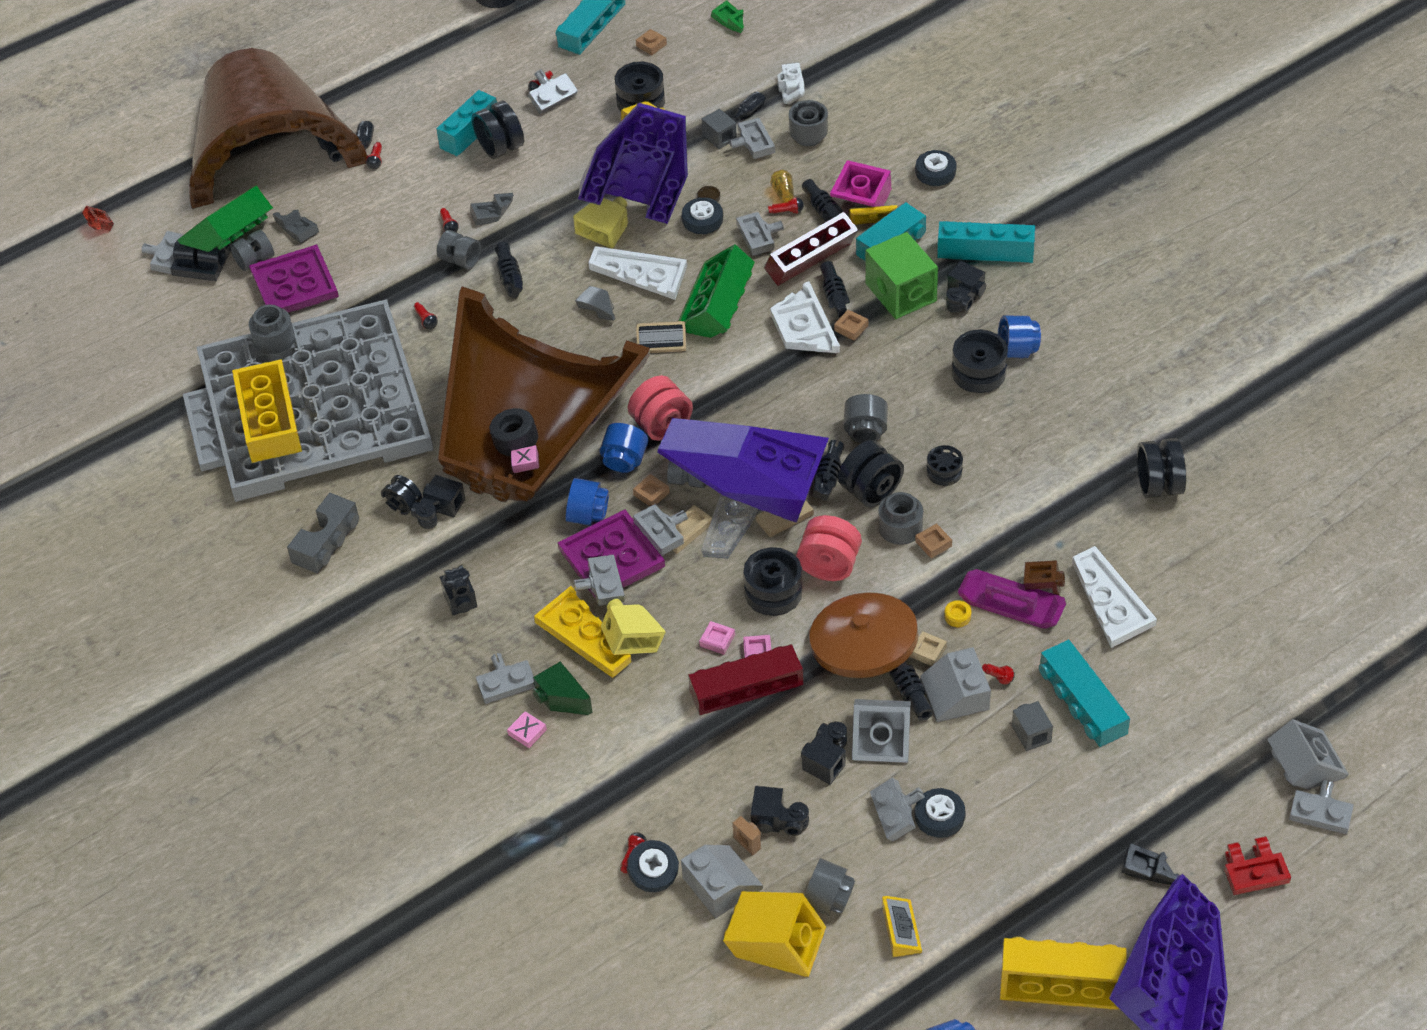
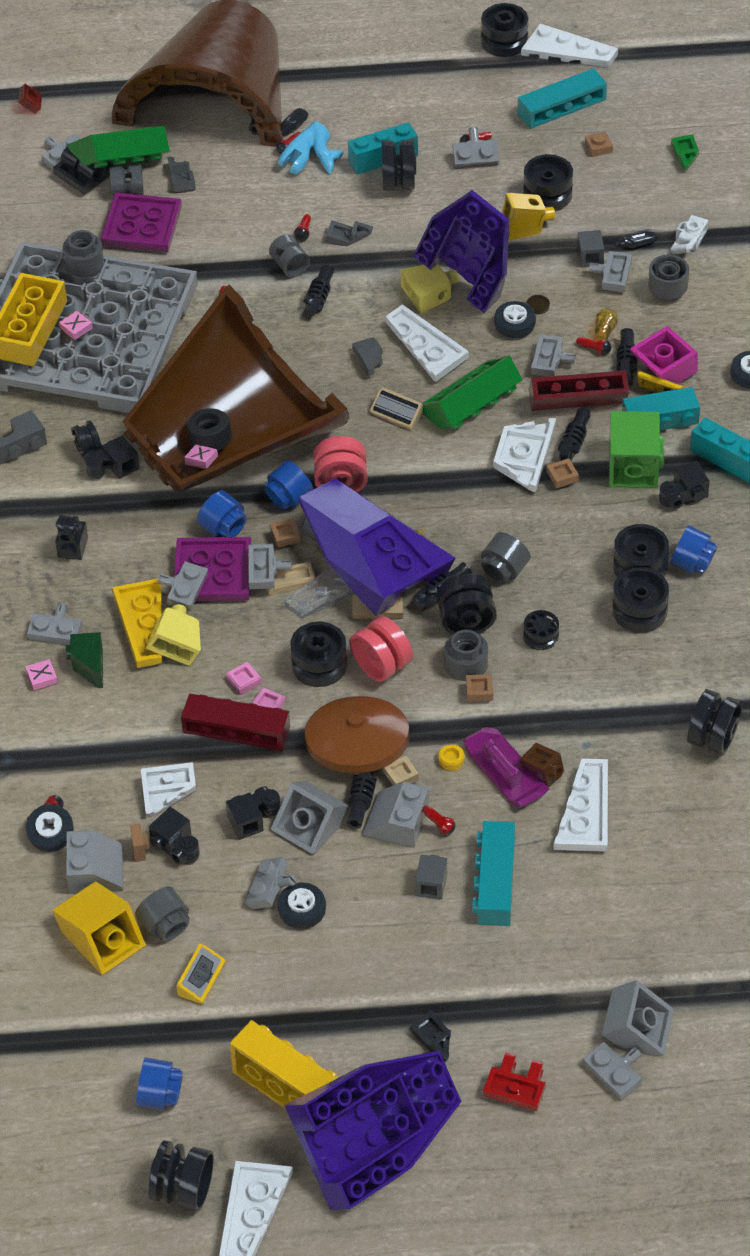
camera: 30 degrees right, 0 degrees up
(313, 396) = (75, 325): none -> bright pink tile
(391, 158) = (298, 150): none -> medium azure piece
(728, 770) = (166, 786): none -> white wing
(1010, 397) = (640, 599): none -> black wheel

